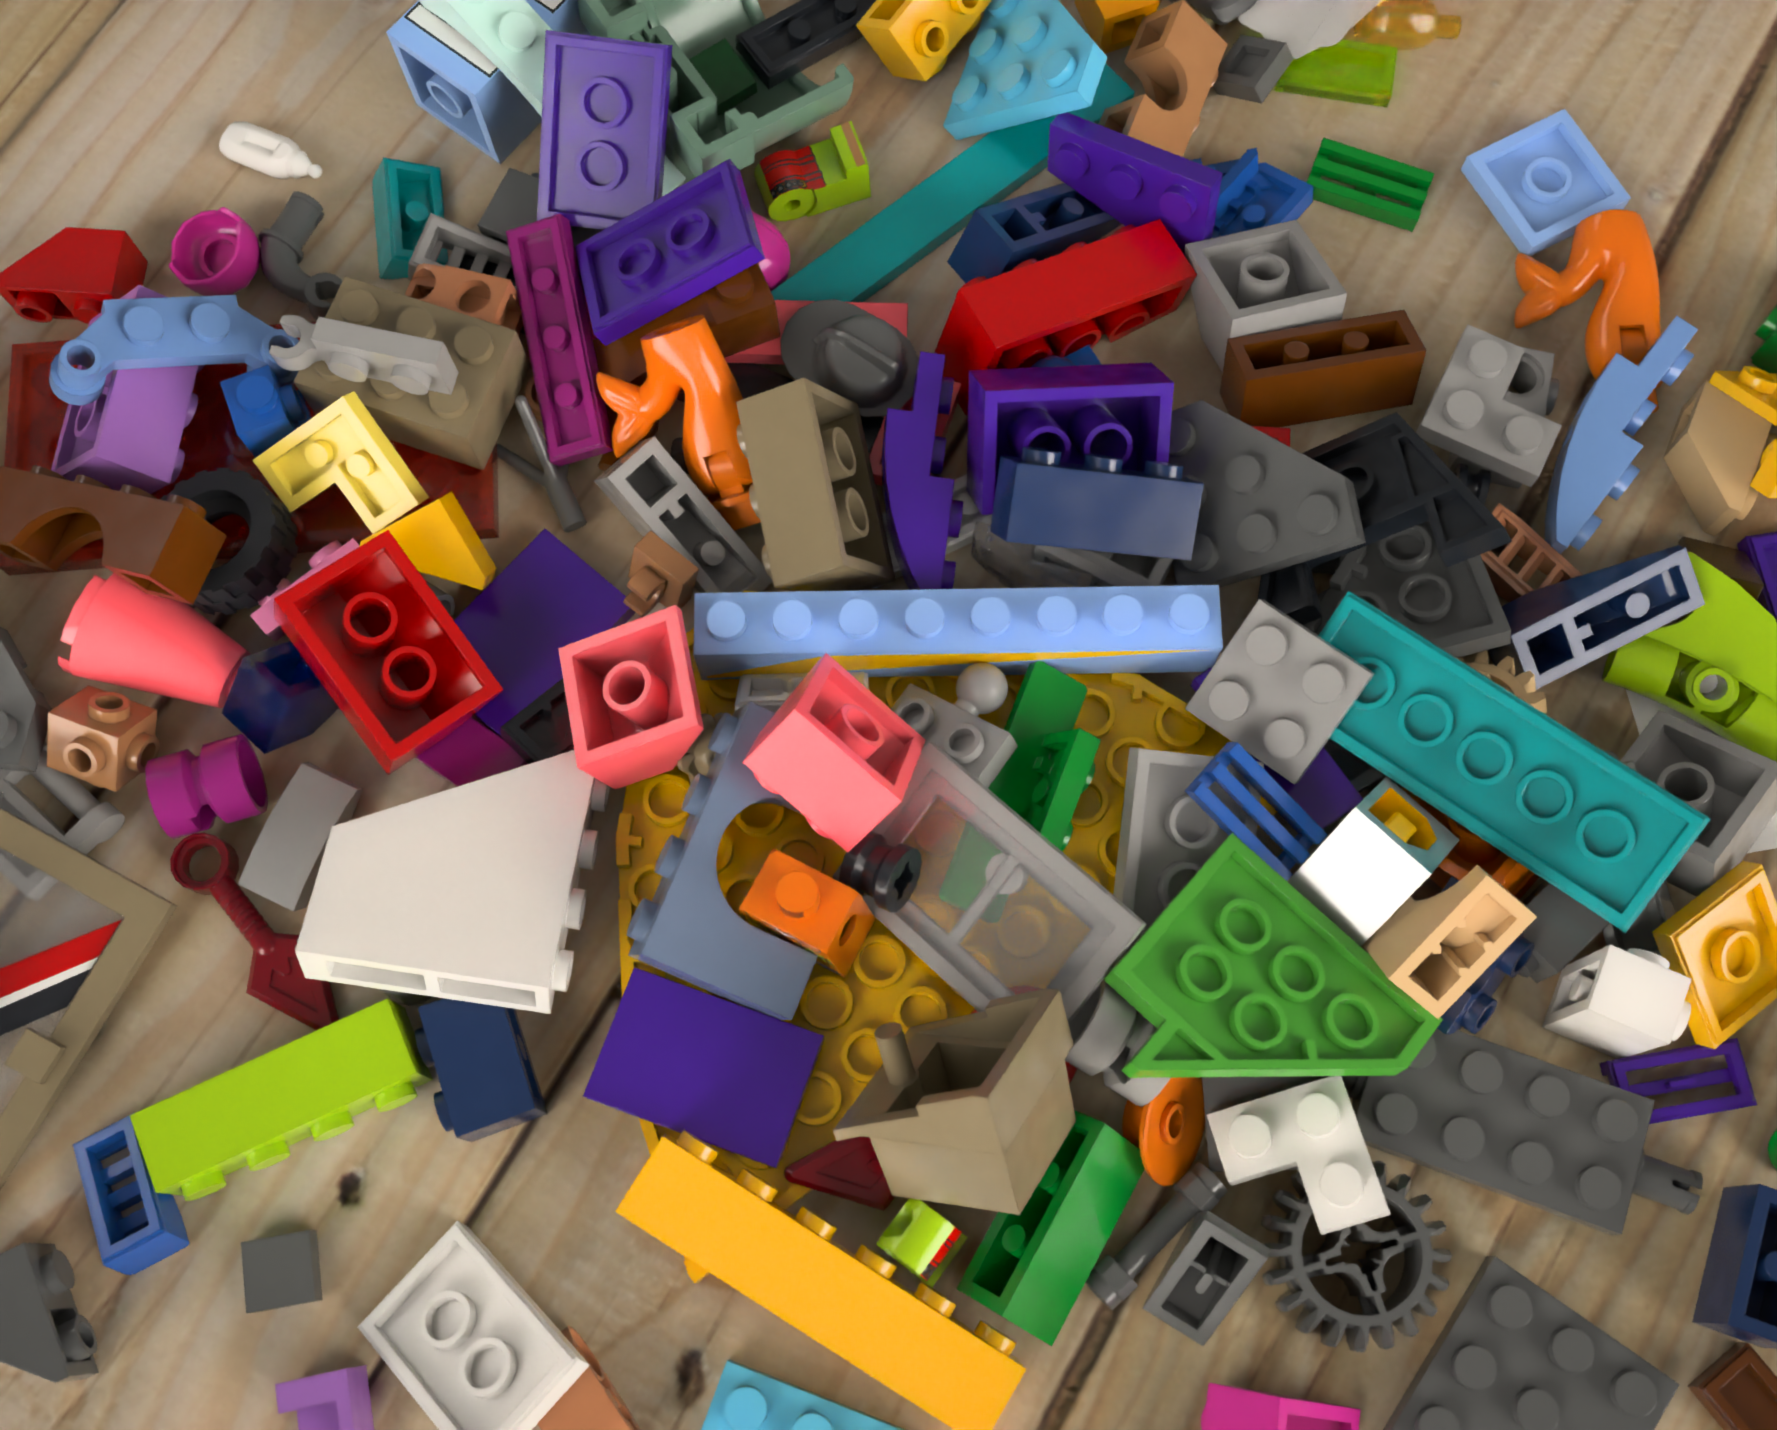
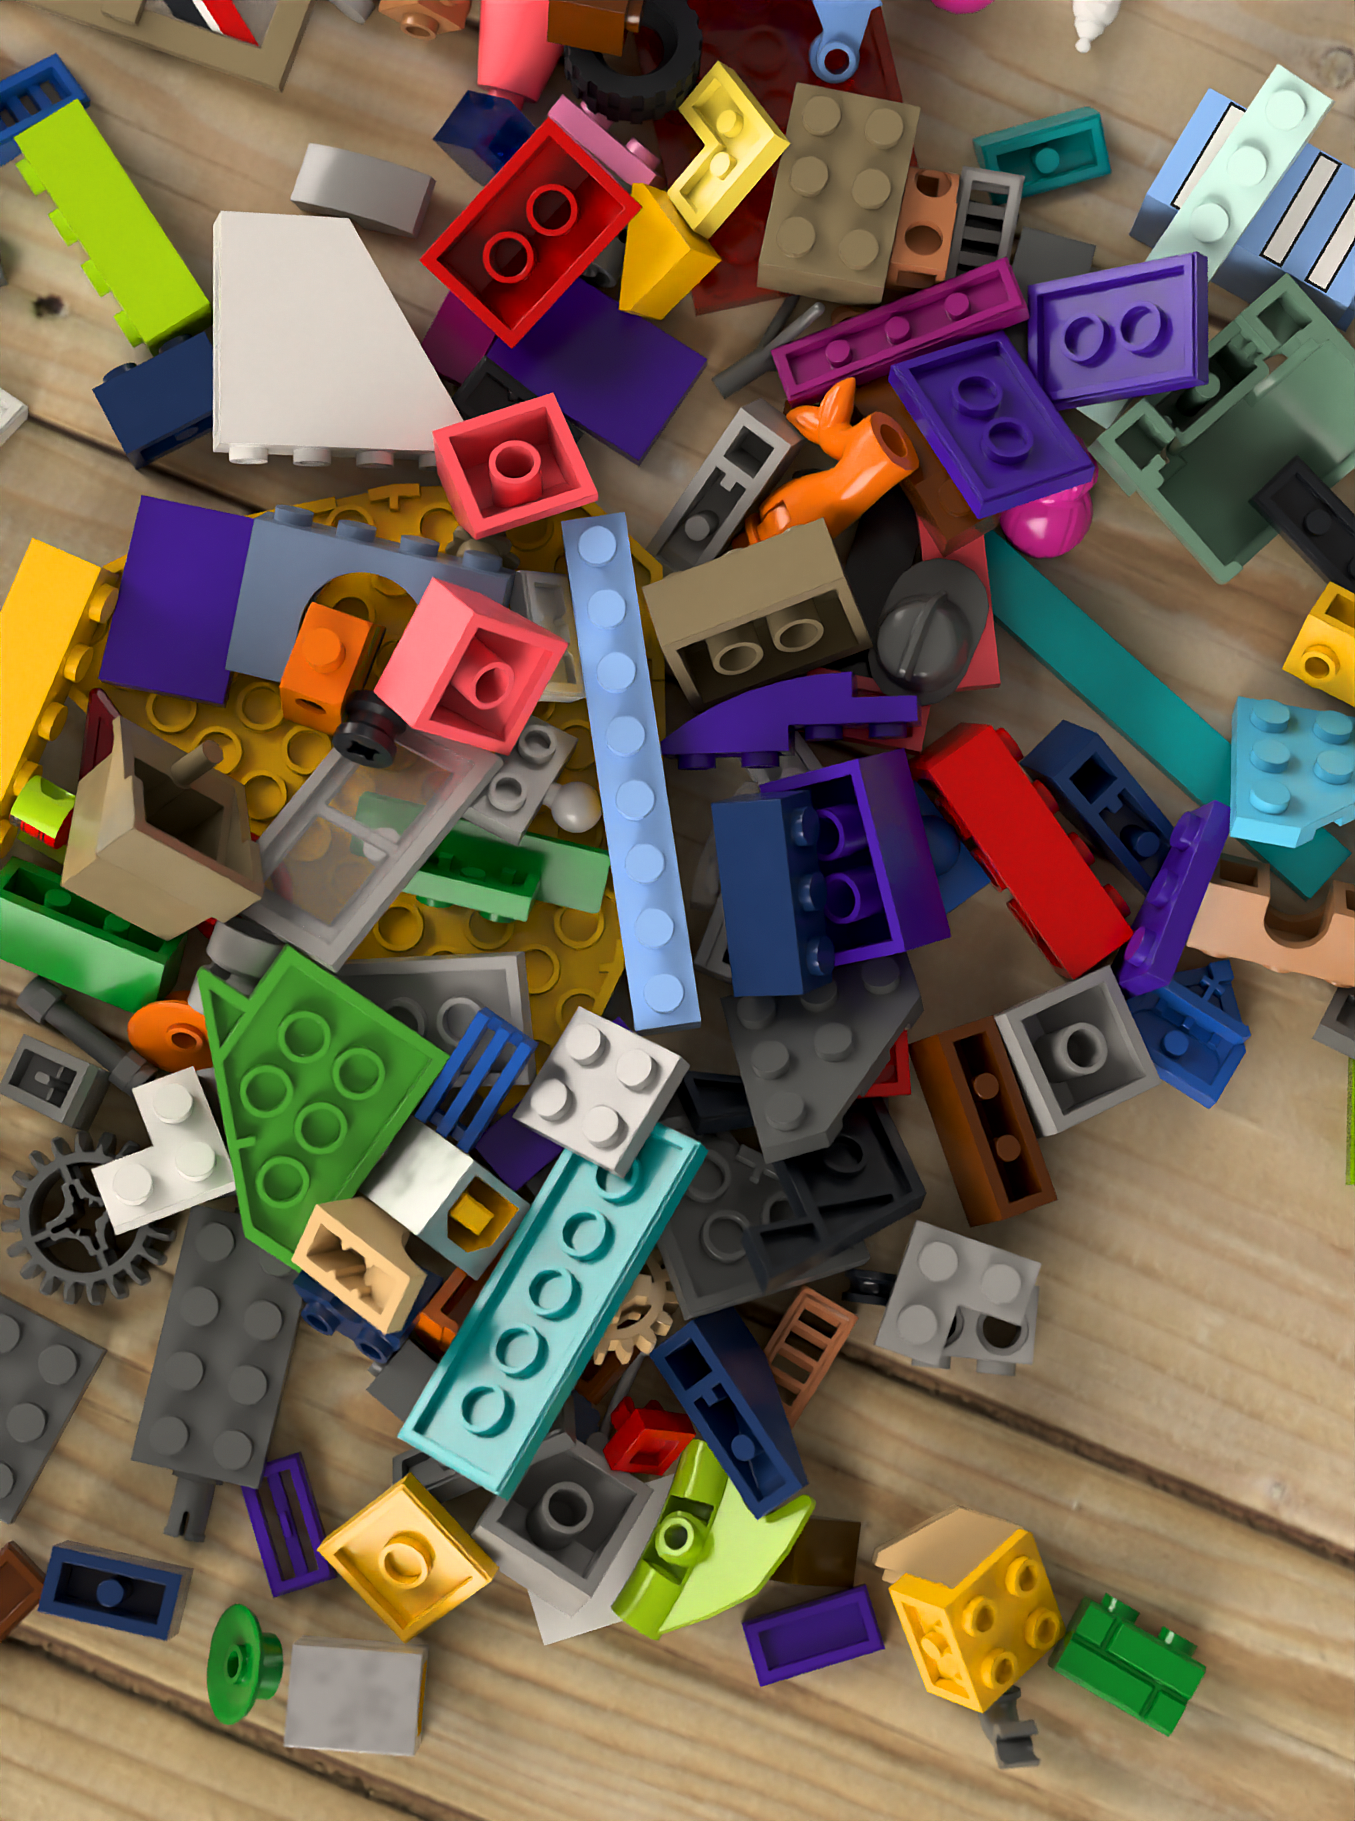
camera: 80 degrees right, 10 degrees up
(194, 789) = (399, 101): magenta wheel -> none
(263, 408) = (772, 62): blue brick -> none
(274, 968) = (252, 189): dark red piece -> none
(283, 252) = (979, 33): dark grey piece -> none
(368, 352) = (814, 138): light grey plate -> none
(658, 575) = (665, 479): medium nougat tile -> none
(725, 75) = (1247, 444): dark green tile -> none
(815, 176) = (1149, 567): lime leg -> none
(1369, 176) = (1248, 1113): green tile -> none
(1543, 182) = (1260, 1358): light blue plate -> none
(1595, 450) = (924, 1411): medium blue slope -> none
(1605, 710) = (646, 1438): none -> red tile
(1620, 1002) = (342, 1449): white brick -> none
(1627, 312) = (1100, 1451): orange piece -> none

